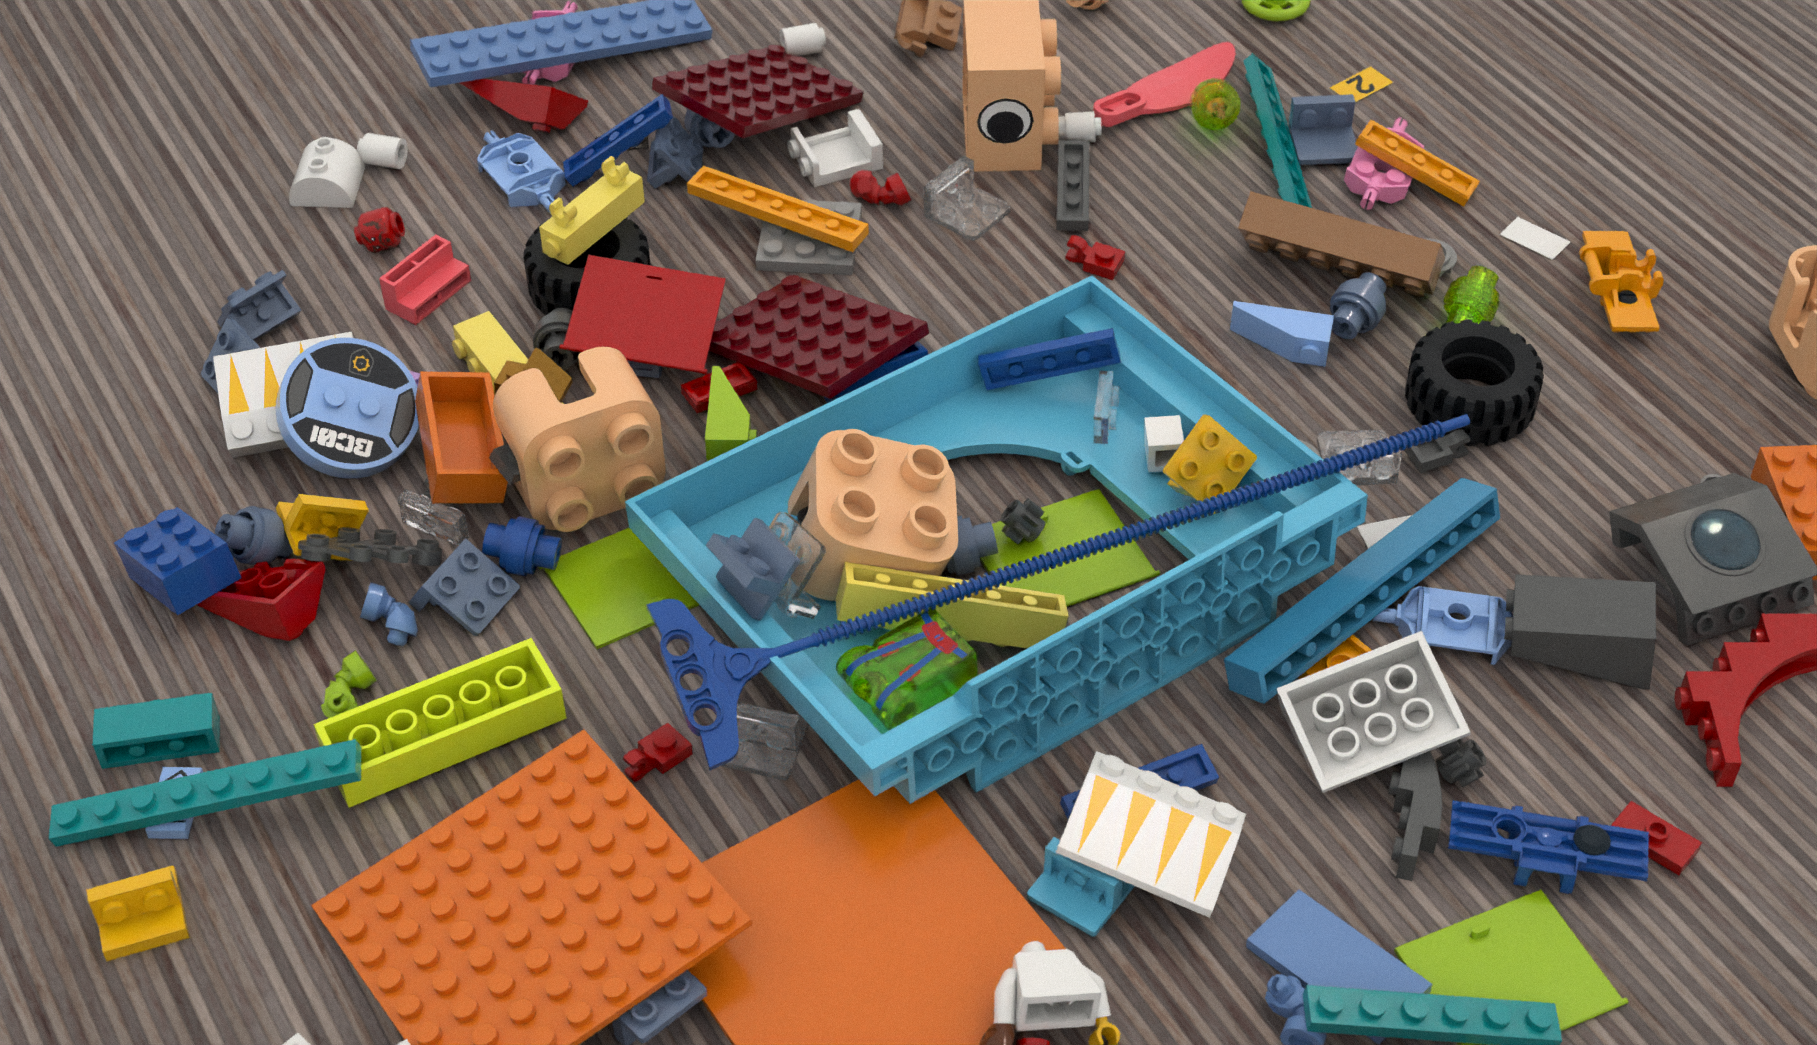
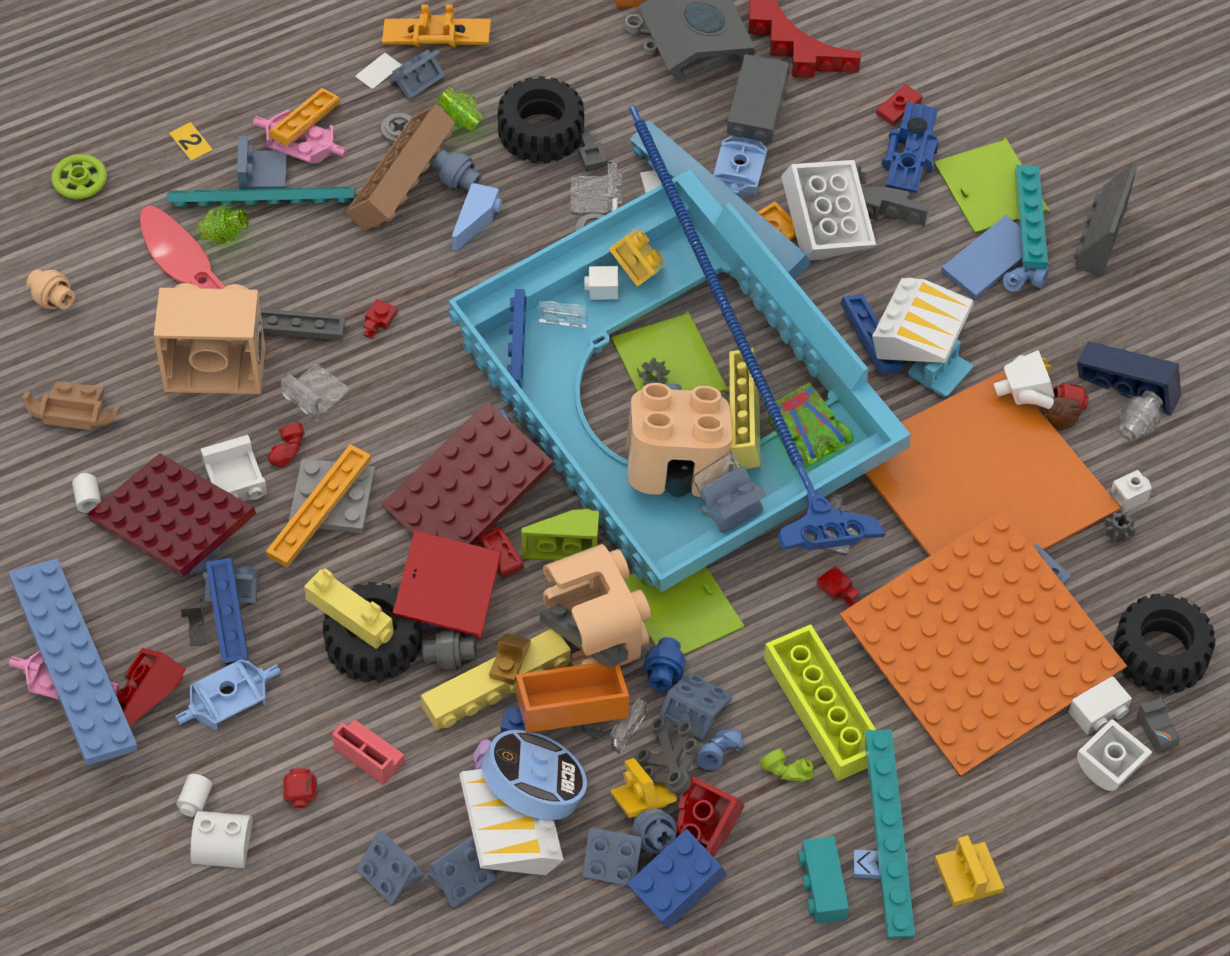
camera: 90 degrees left, 10 degrees up
(238, 493) = (611, 856): none -> sand blue bracket
(1528, 261) = (418, 73): none -> sand blue bracket

